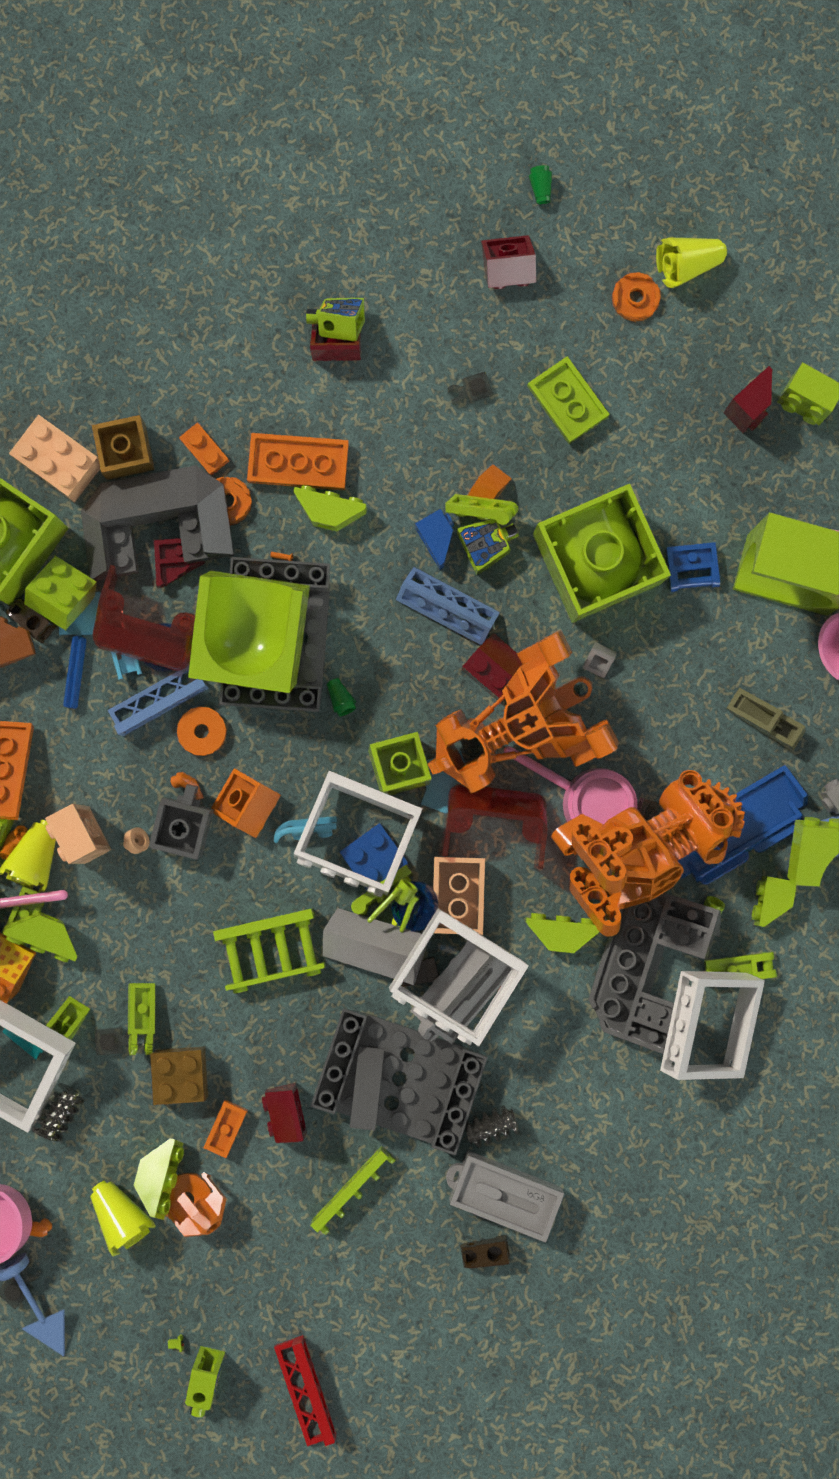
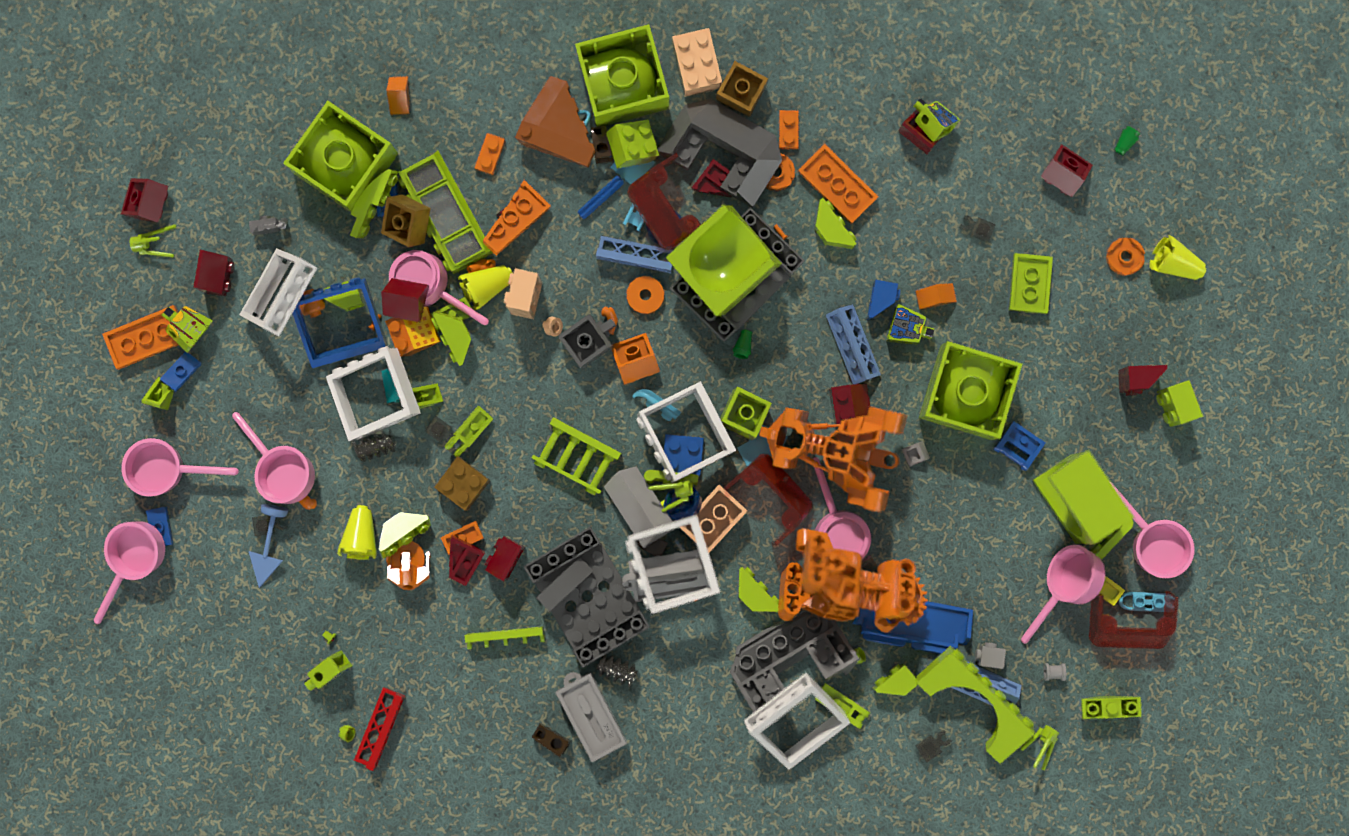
camera: 40 degrees right, 0 degrees up
(245, 1151) = (463, 560): none -> dark red wing
(277, 1429) = (347, 736): none -> lime hinge
(482, 508) = (923, 304): lime plate -> none
(766, 719) = (985, 573): olive slope -> none

